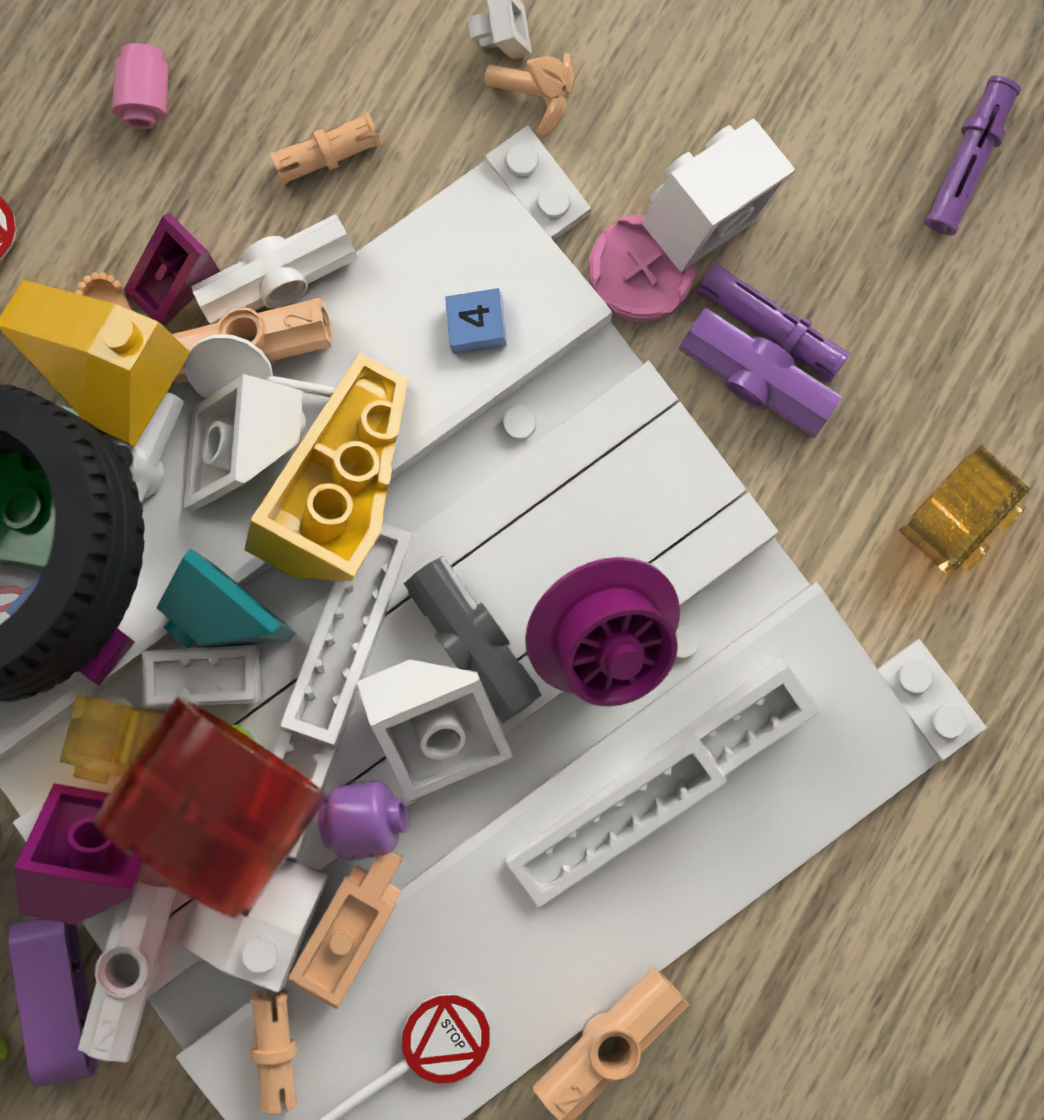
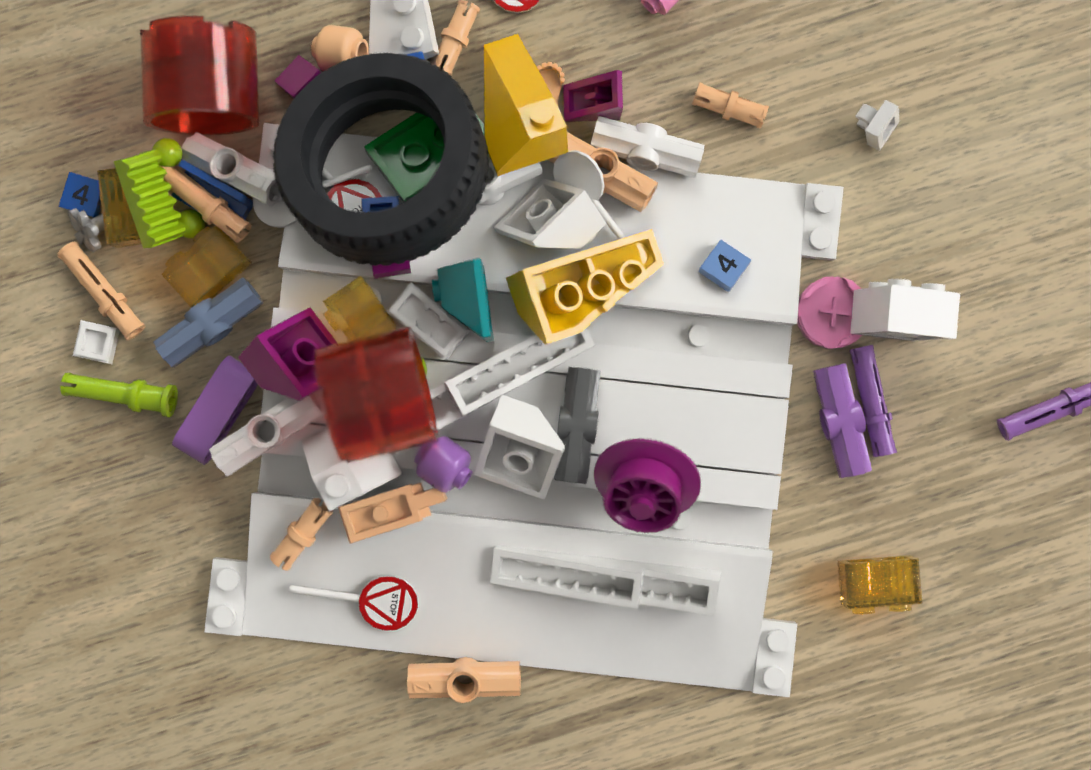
camera: 40 degrees right, 5 degrees up
(545, 79) = (874, 171): light nougat plant -> none

